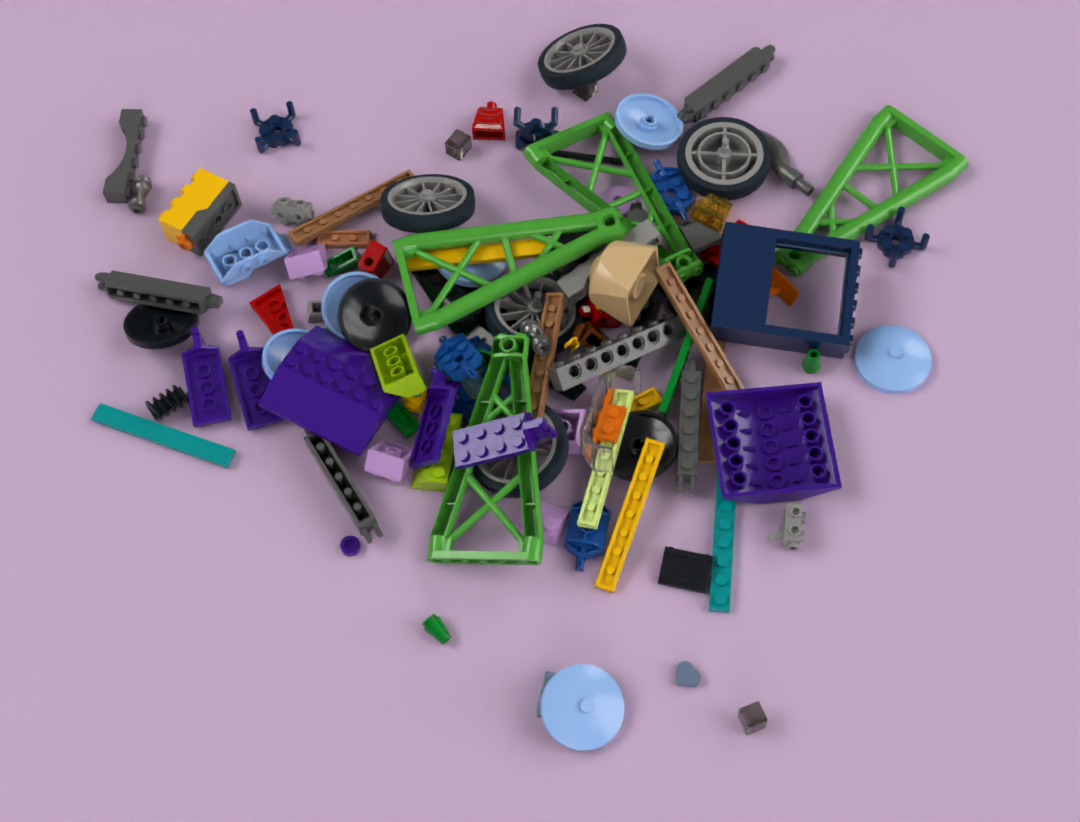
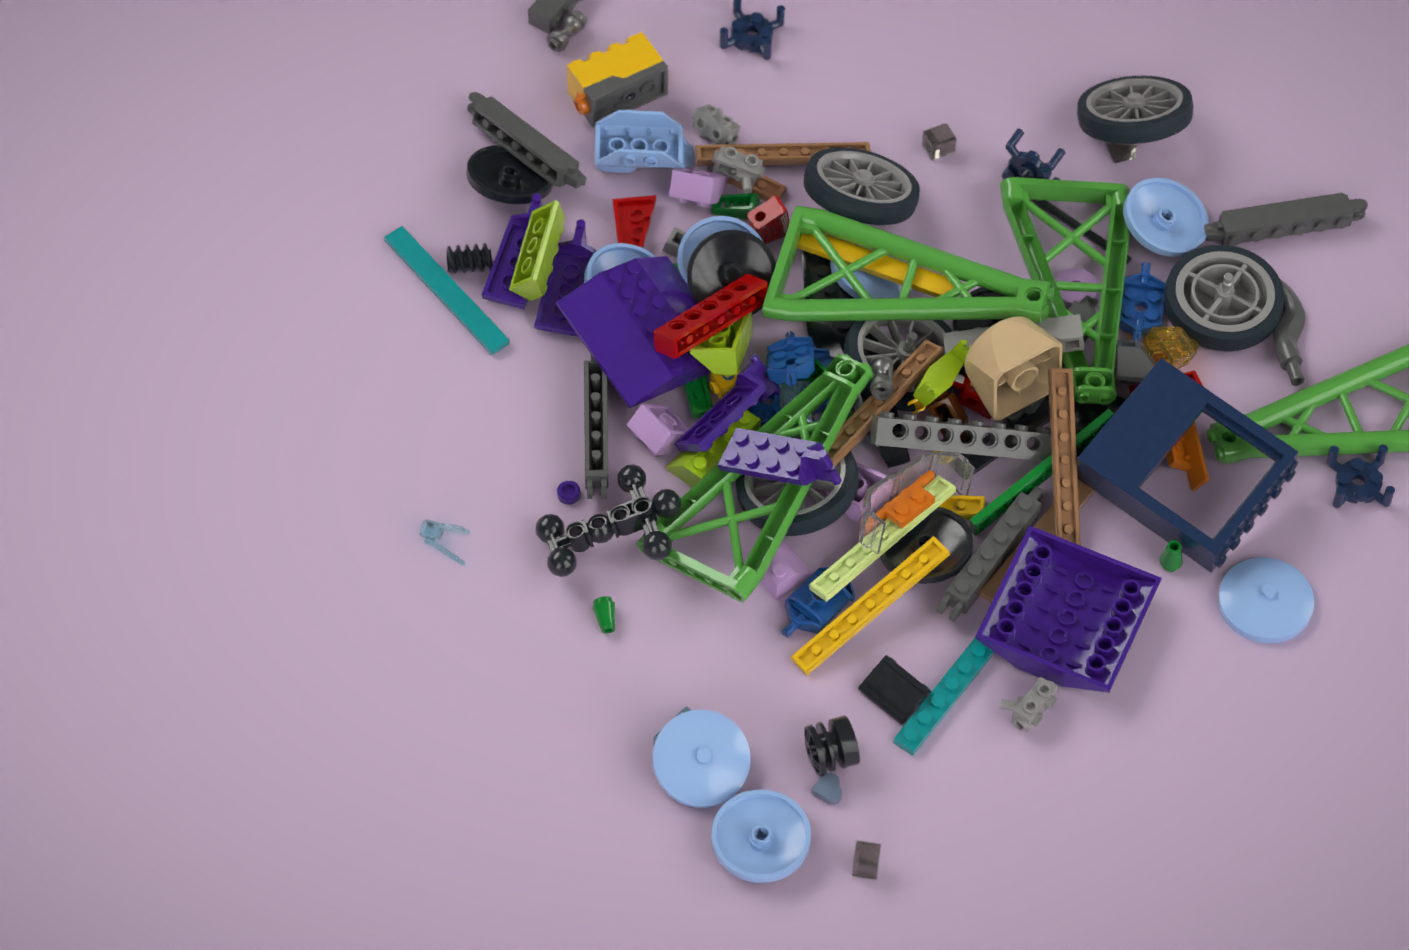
camera: 25 degrees right, 5 degrees down
(219, 371) = (538, 251): none -> lime slope
(265, 632) = (434, 530): none -> clear light blue plant
(329, 232) = (738, 166): none -> light grey brick
(381, 356) = (710, 316): none -> red brick
(395, 512) = (622, 520): none -> black piece
(489, 123) = (988, 134): red torso -> none
(576, 312) = (941, 374): none -> lime piece
(665, 744) = (761, 836): none -> light blue dish
(672, 641) = (836, 743): none -> black wheel

